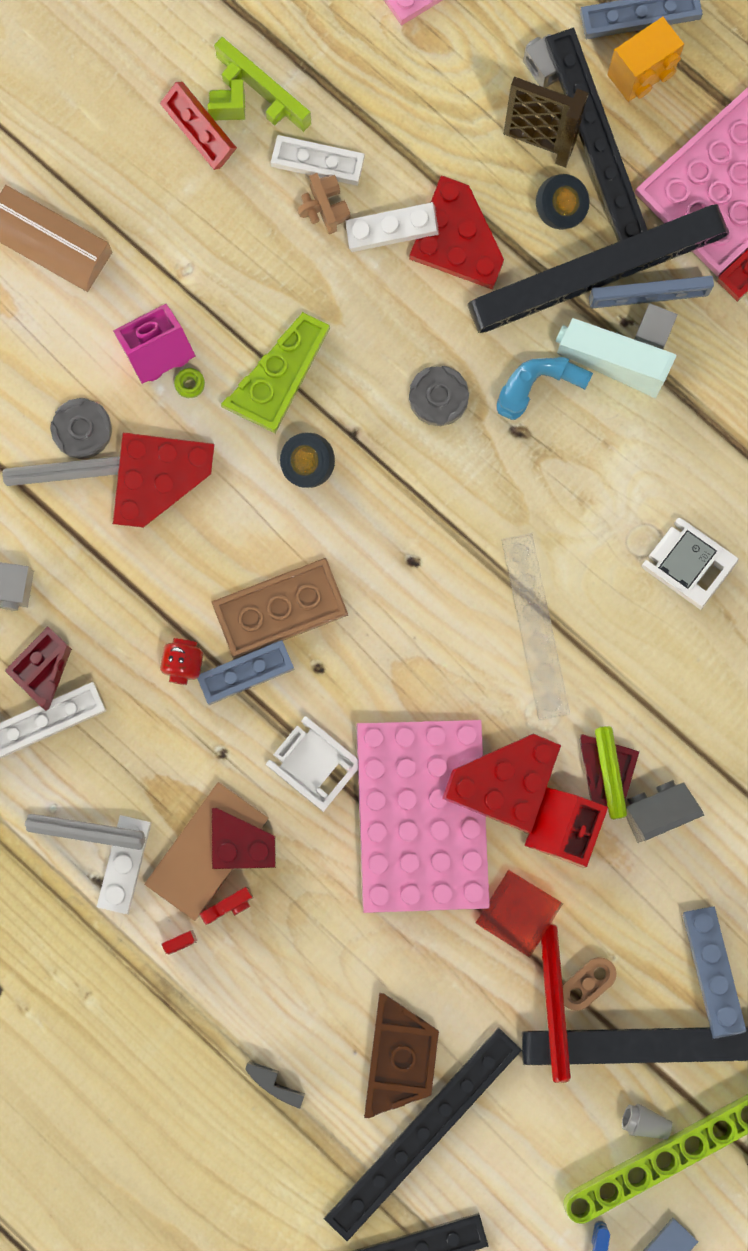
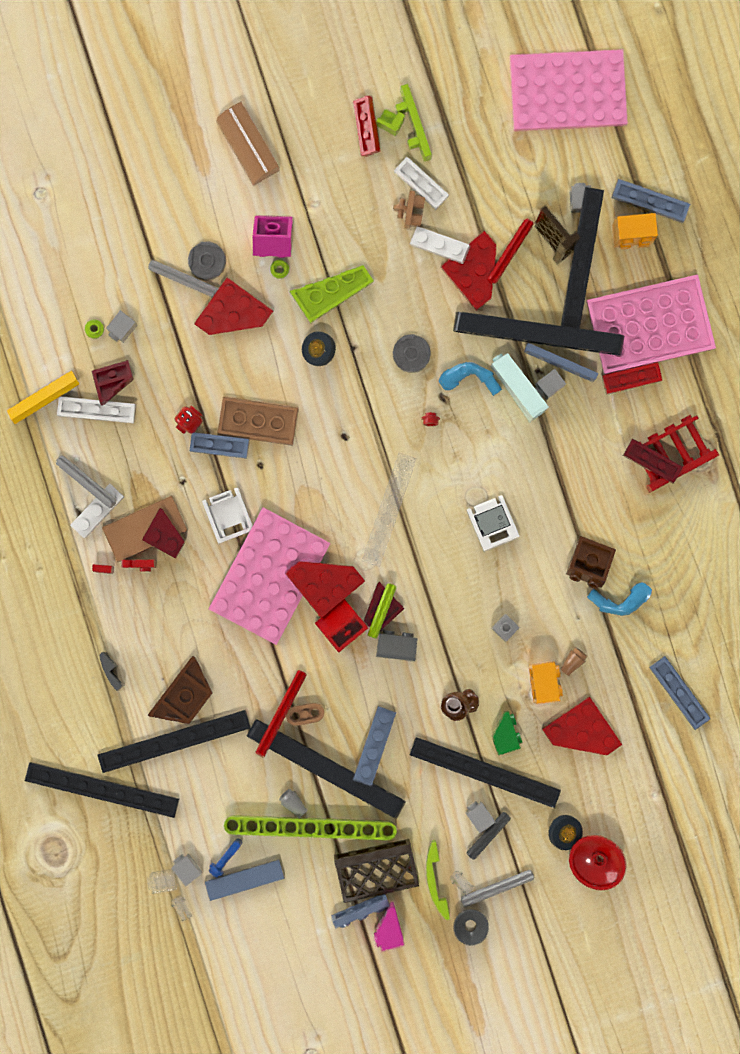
camera: 25 degrees right, 5 degrees up
(493, 182) = (510, 251): none -> red axle
(519, 469) = (430, 419): none -> red plate
(519, 913) = (290, 656): clear red tile -> none
(562, 201) = (542, 284): black wheel -> none

